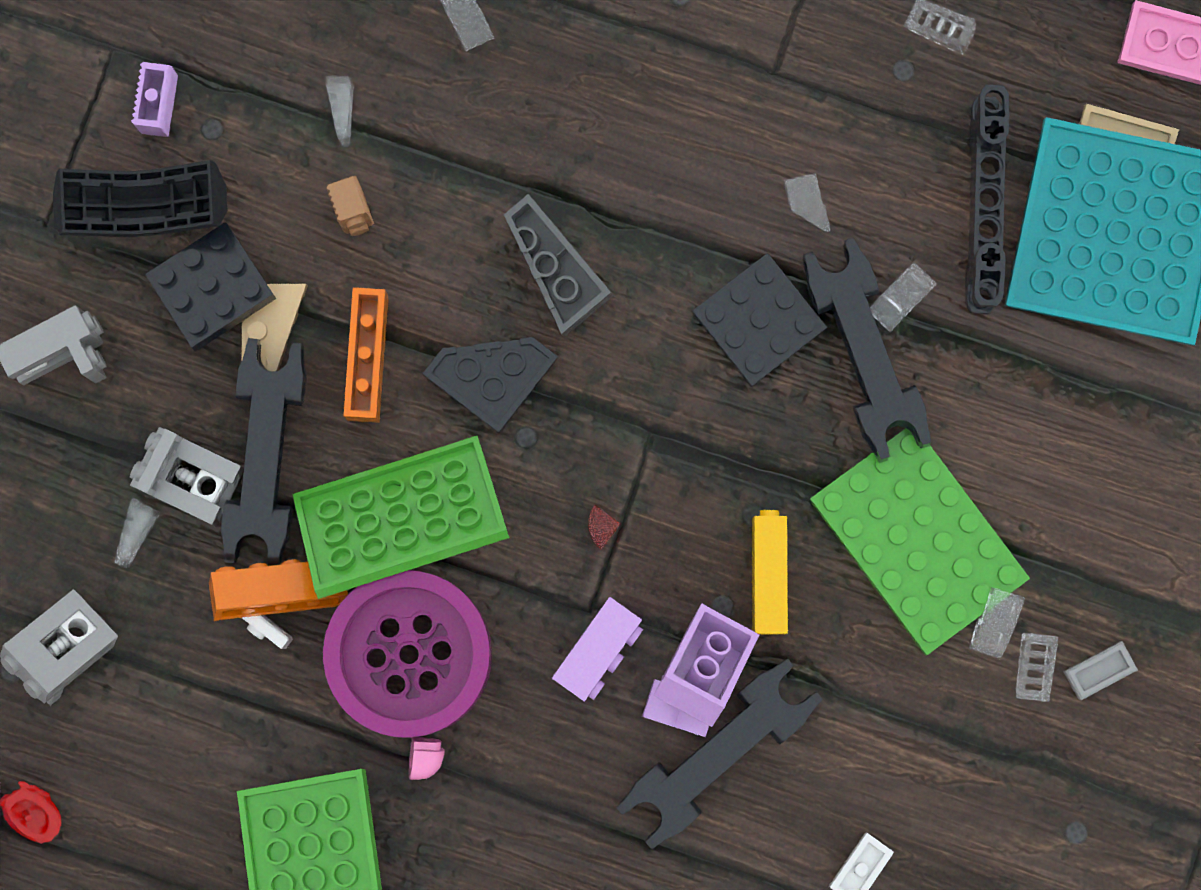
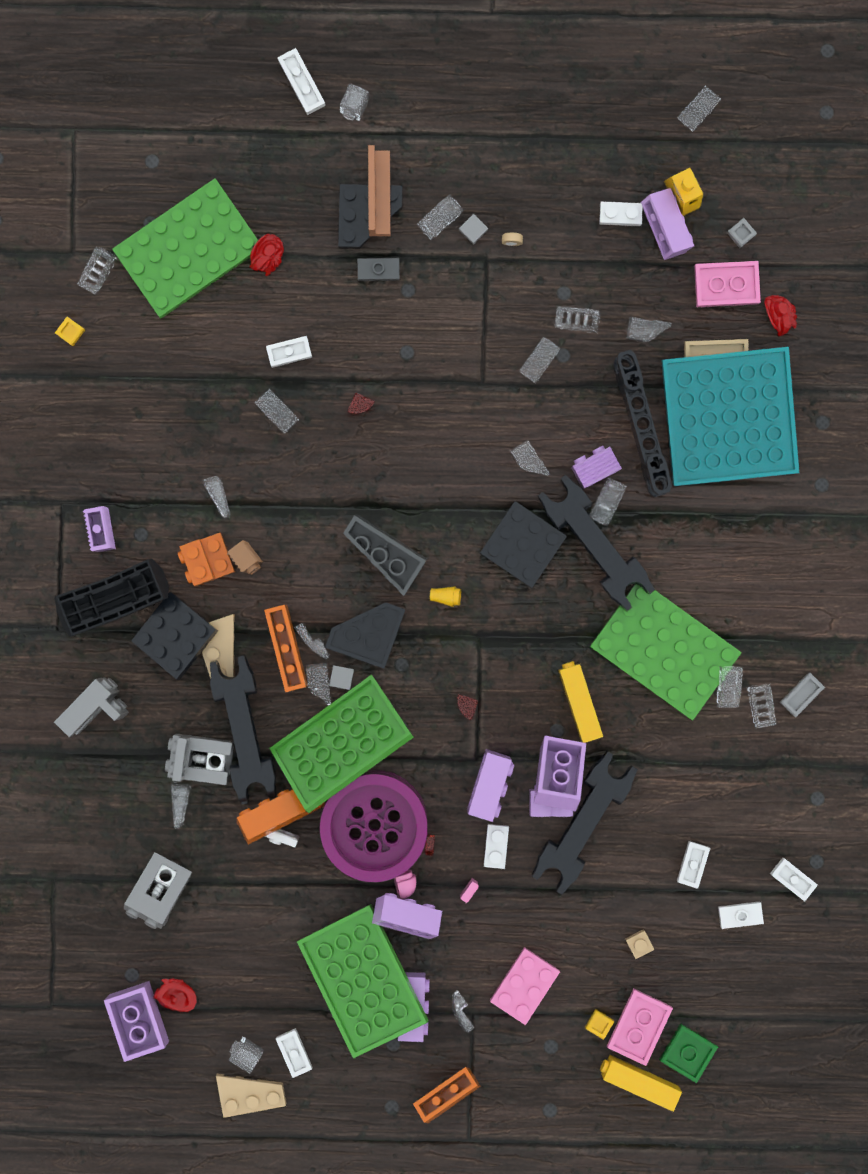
camera: 15 degrees left, 5 degrees up
(293, 193) = (206, 559): none -> orange plate
(397, 421) = (319, 681): none -> clear slope
(411, 365) = (317, 645): none -> clear slope
(412, 804) = (407, 916): none -> lavender brick
(432, 426) = (341, 677): none -> light grey tile
(480, 713) = (429, 849): none -> clear red tile
(516, 799) = (469, 890): none -> bright pink tile
(577, 747) = (496, 846): none -> white plate
(588, 45) = (360, 404): none -> clear red tile
(624, 357) = (448, 596): none -> yellow cone
(868, 64) = (539, 359): none -> clear slope
(900, 242) = (596, 467): none -> lavender brick
(1033, 71) = (645, 330): none -> clear slope

